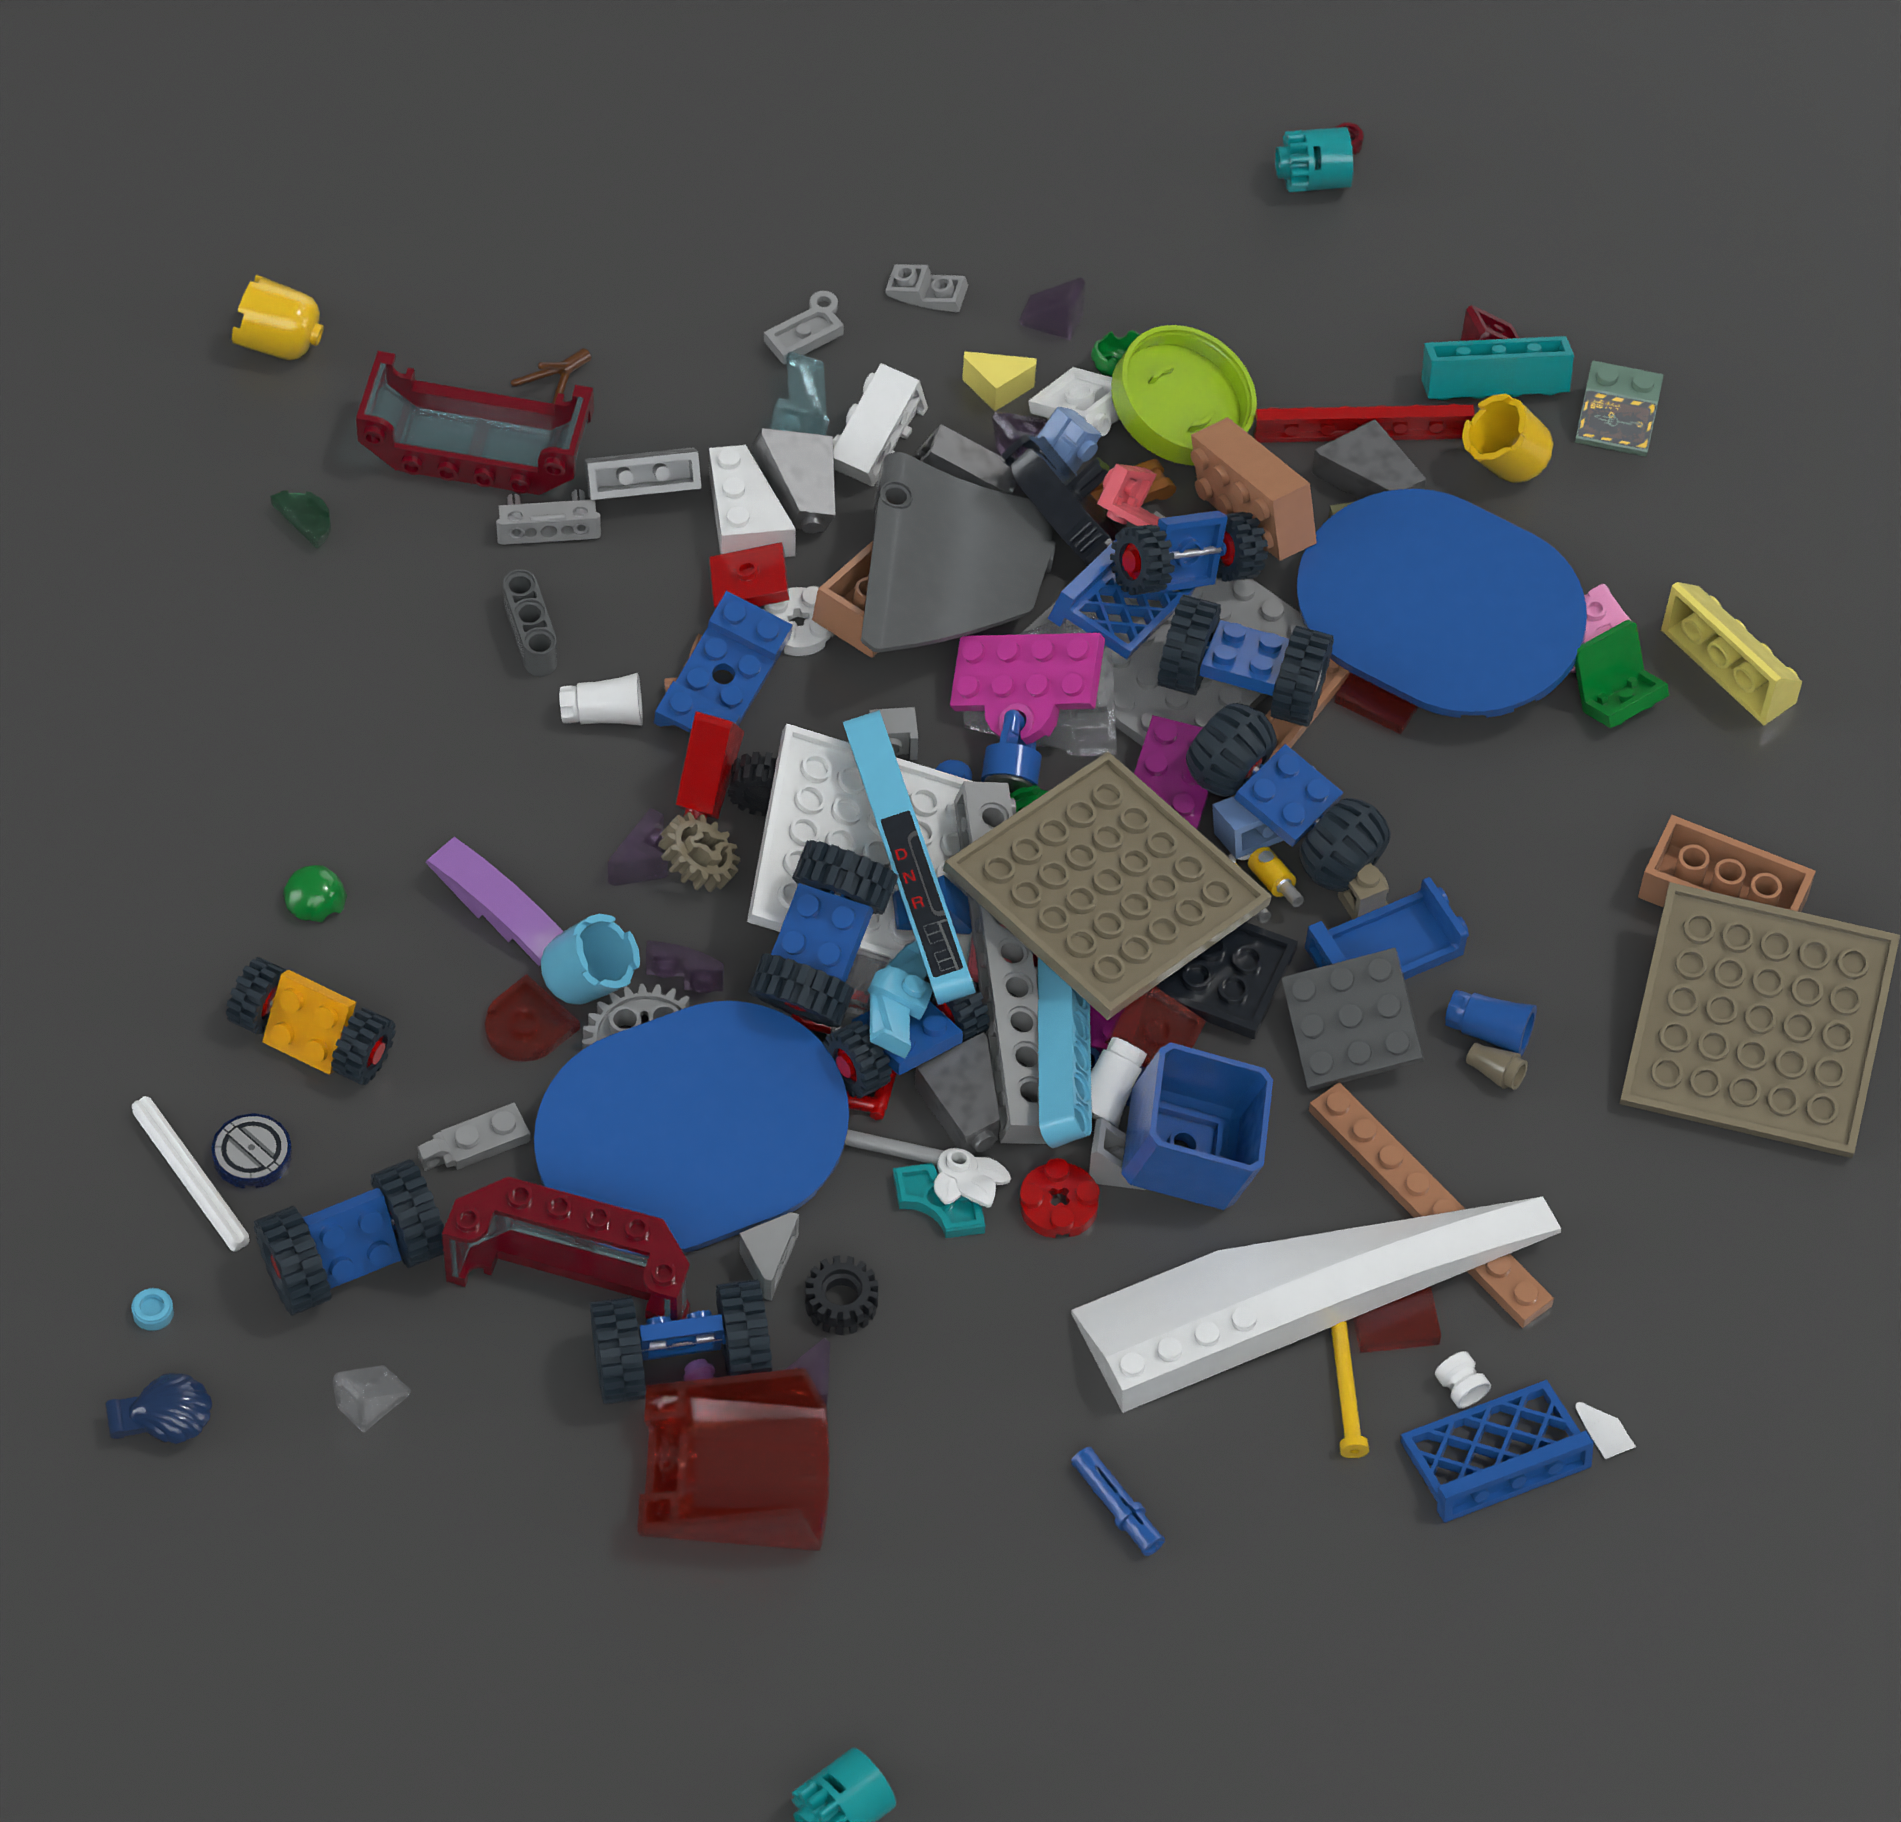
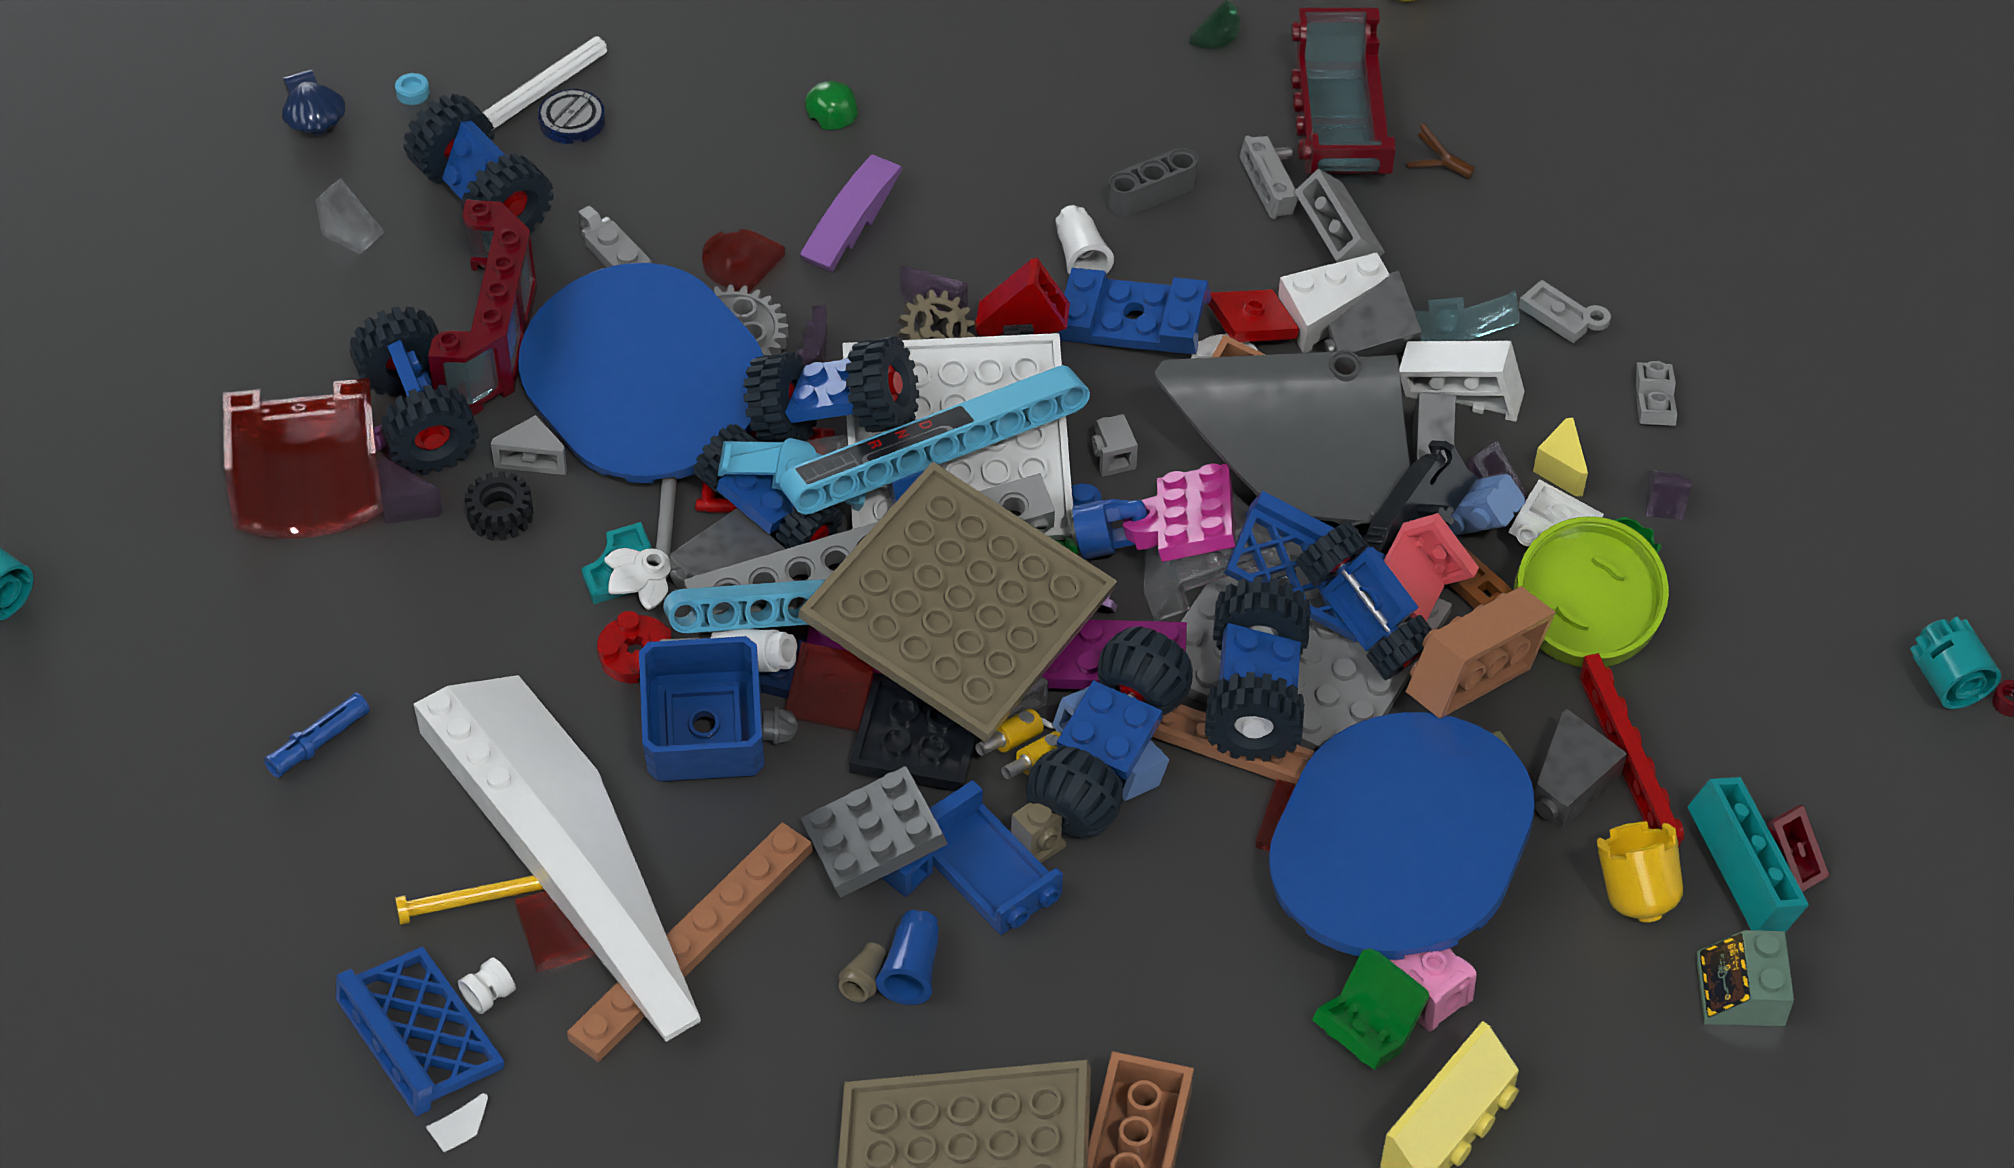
camera: 80 degrees right, 5 degrees down
(310, 1021) = (672, 143): plate -> none
(589, 960) = (787, 264): medium azure cylinder -> none

